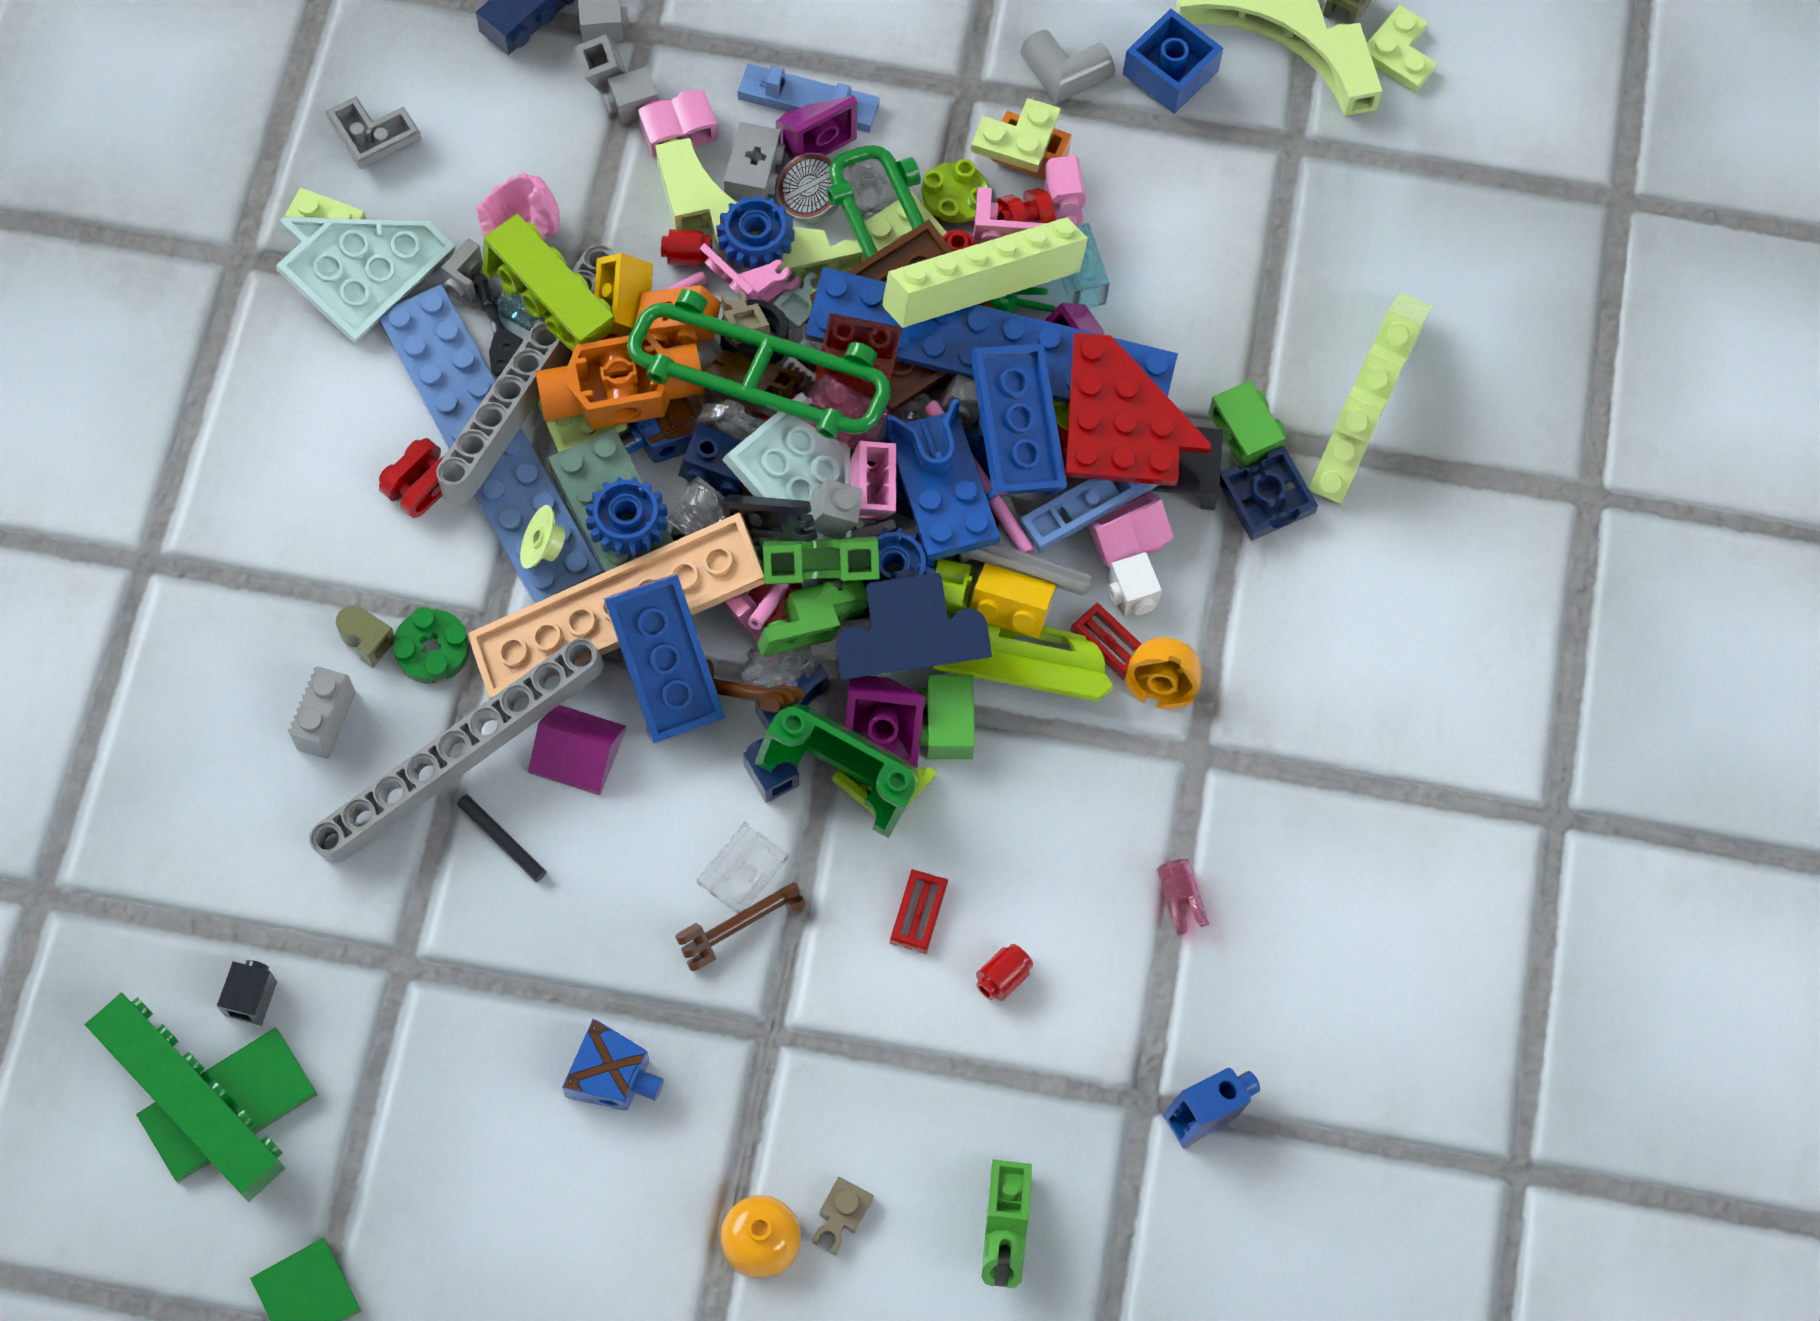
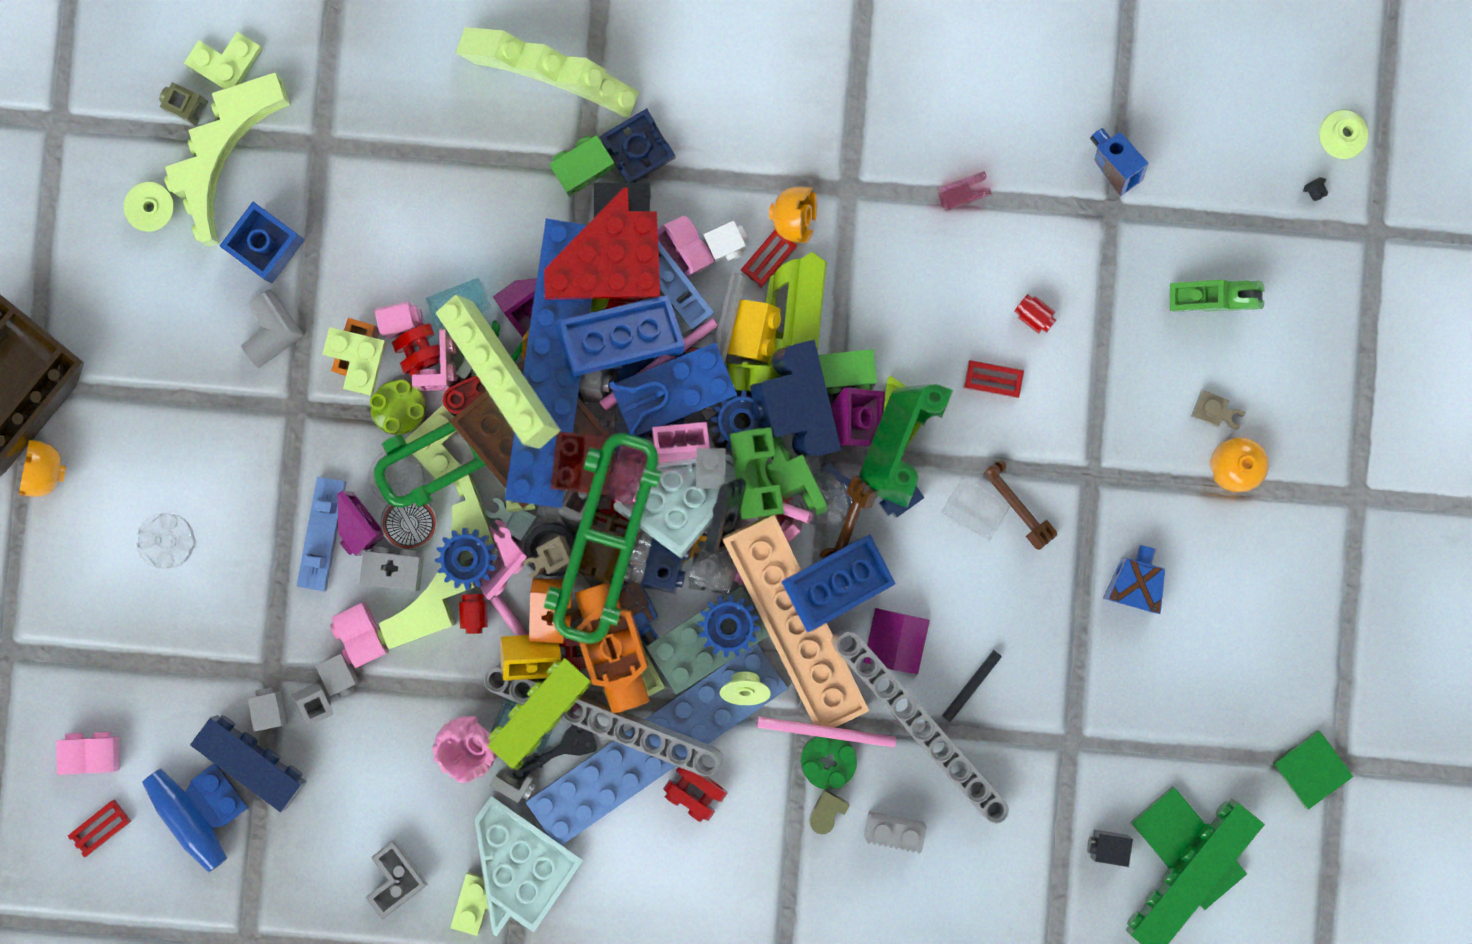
camera: 90 degrees left, 20 degrees up
(469, 640) = (825, 731): none -> bright pink piece

